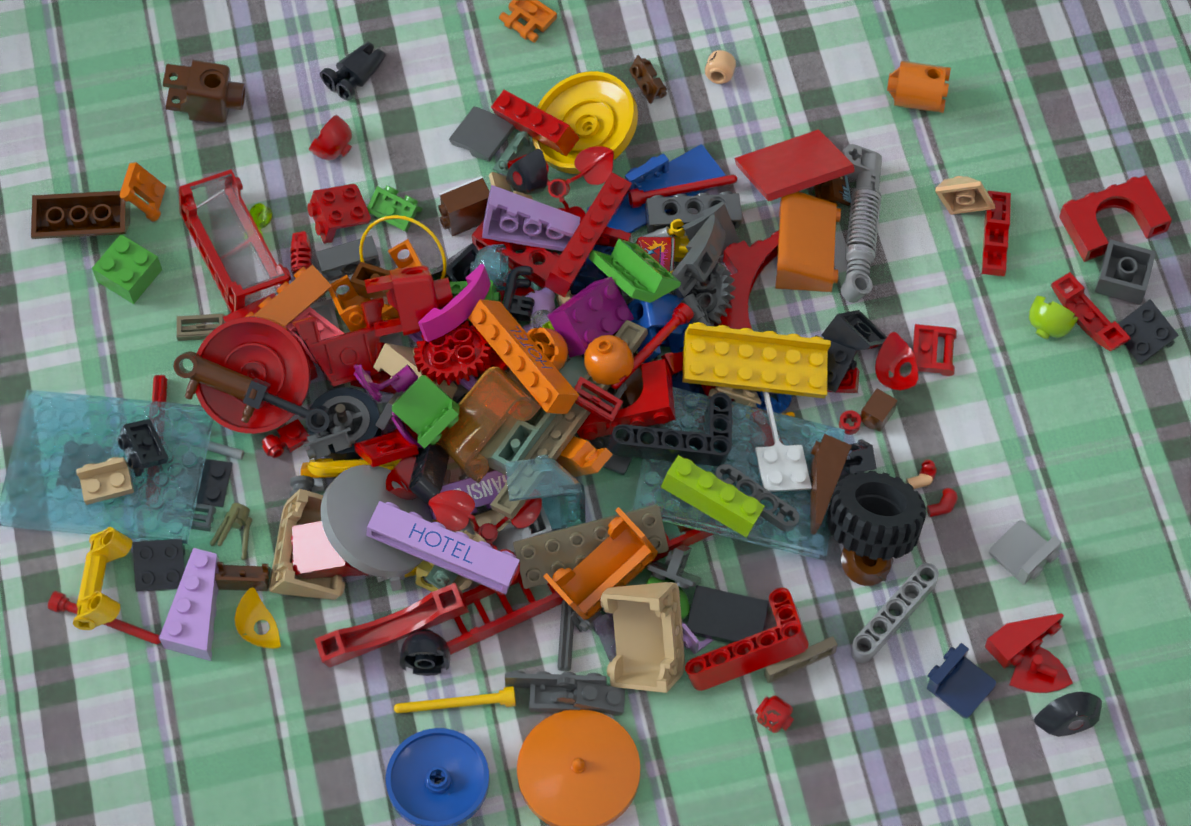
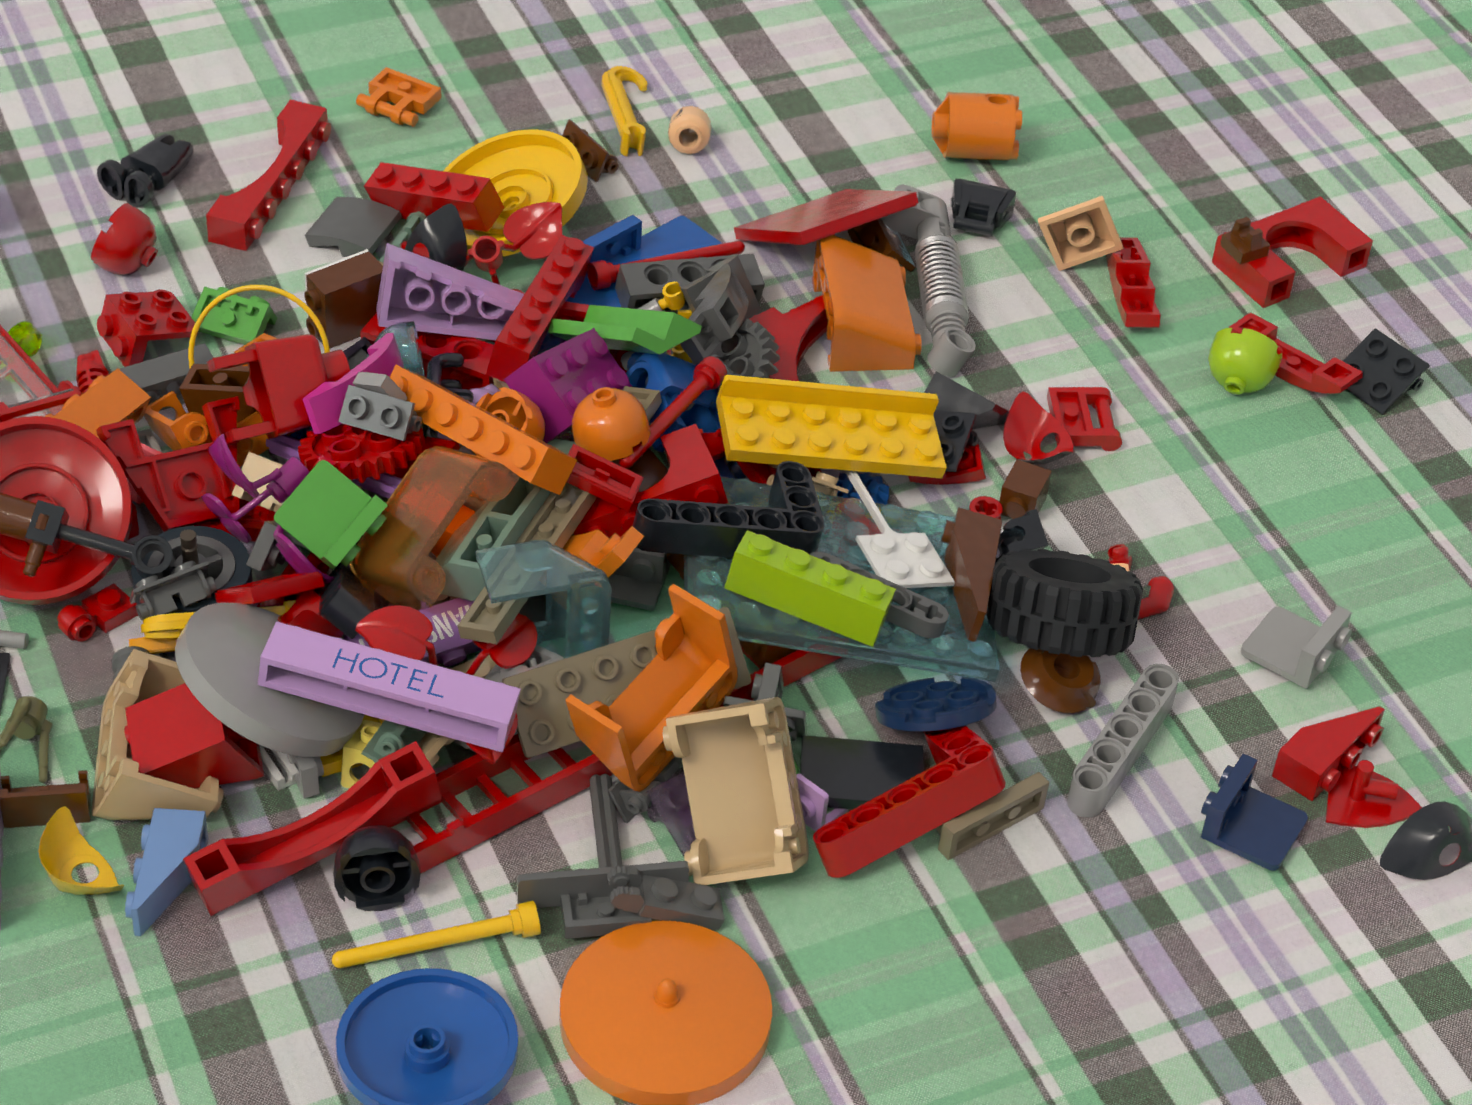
camera: 15 degrees left, 20 degrees down
(312, 621) = (162, 870): none -> medium blue slope
(408, 121) = (242, 215): none -> red arch
(464, 339) = (379, 413): none -> hinge
(466, 321) = (379, 383): none -> light grey tile
(679, 62) = (630, 131): none -> yellow piece
(774, 714) = (973, 891): red head -> none
(781, 577) = (935, 705): none -> dark blue tile
(906, 155) = (981, 206): none -> black piece
(1078, 217) = (1244, 242): none -> reddish brown tile
(1125, 271) = (1329, 303): dark grey brick -> none

